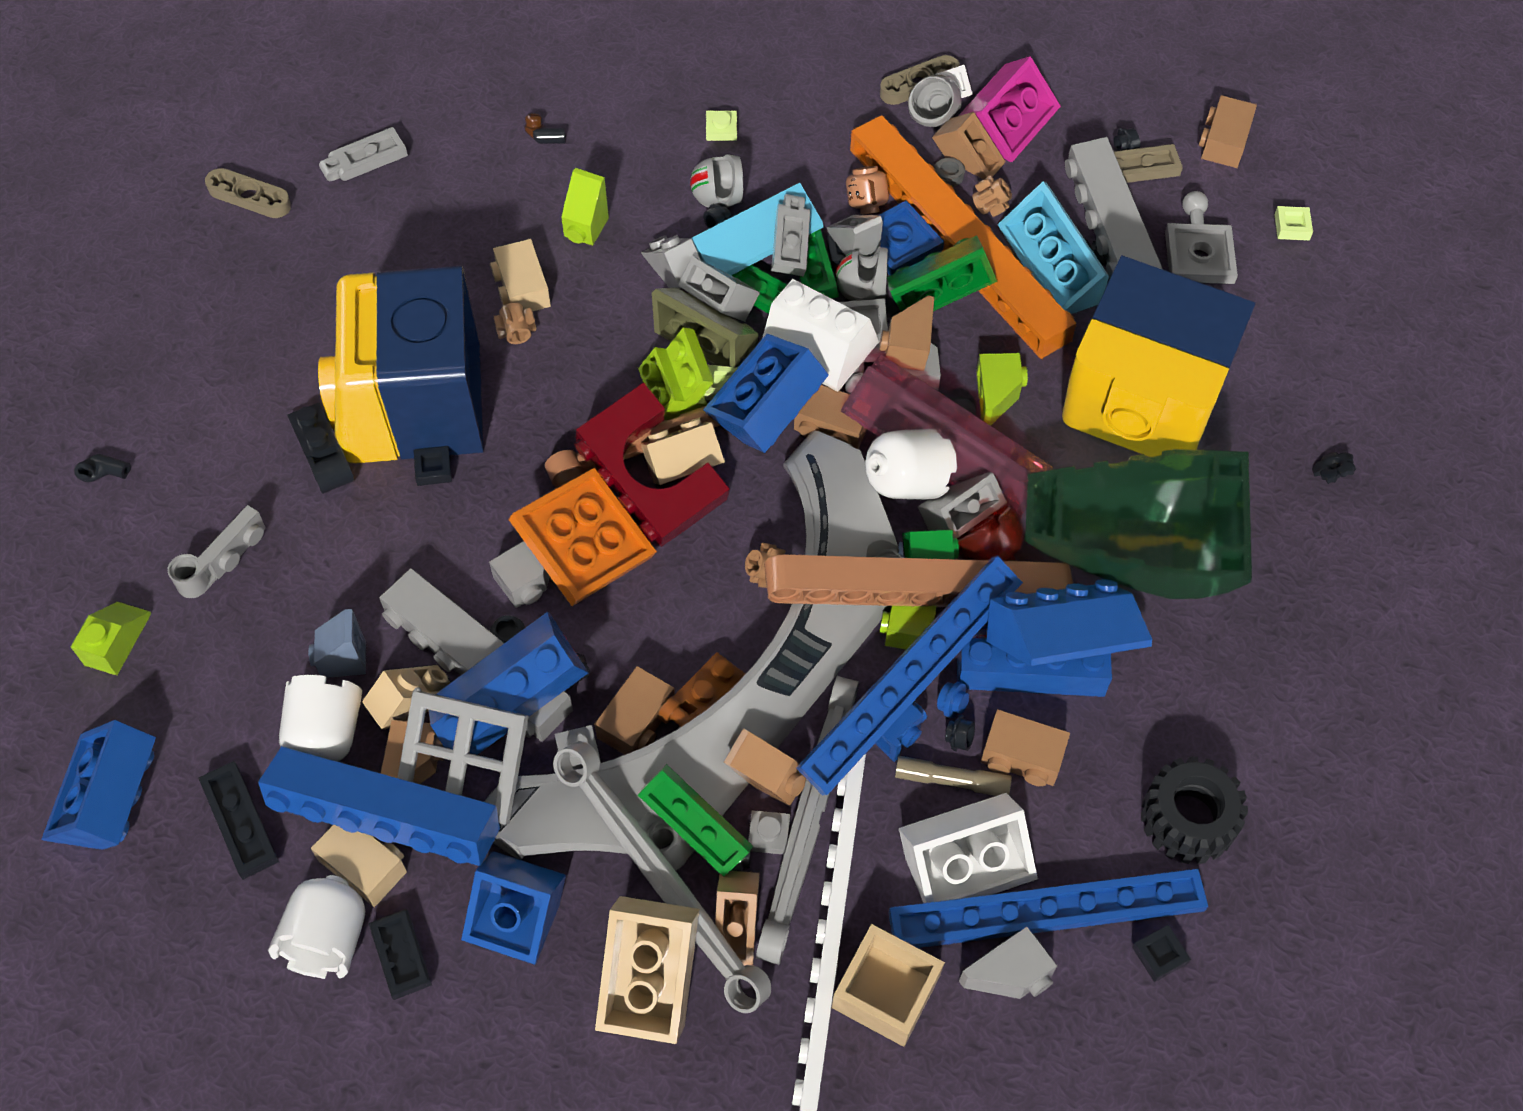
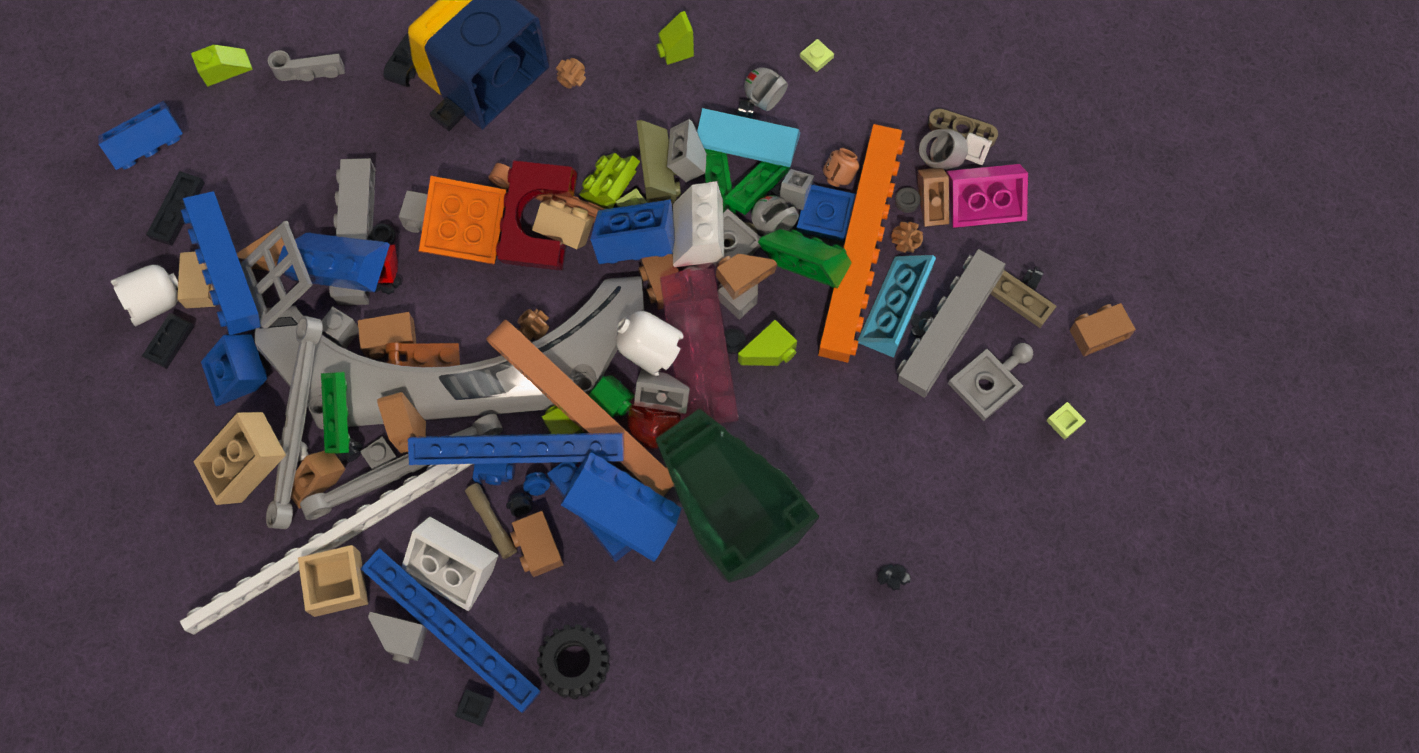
camera: 50 degrees right, 10 degrees up
(319, 716) = (248, 195): white cylinder -> none
(339, 647) = (300, 168): sand blue slope -> none
(393, 692) = (304, 219): tan slope -> none
(520, 275) = (604, 49): tan brick -> none
(670, 257) = (690, 108): light grey slope -> none
(791, 236) = (757, 155): light grey hinge -> none
(1154, 359) = (839, 416): yellow piece -> none

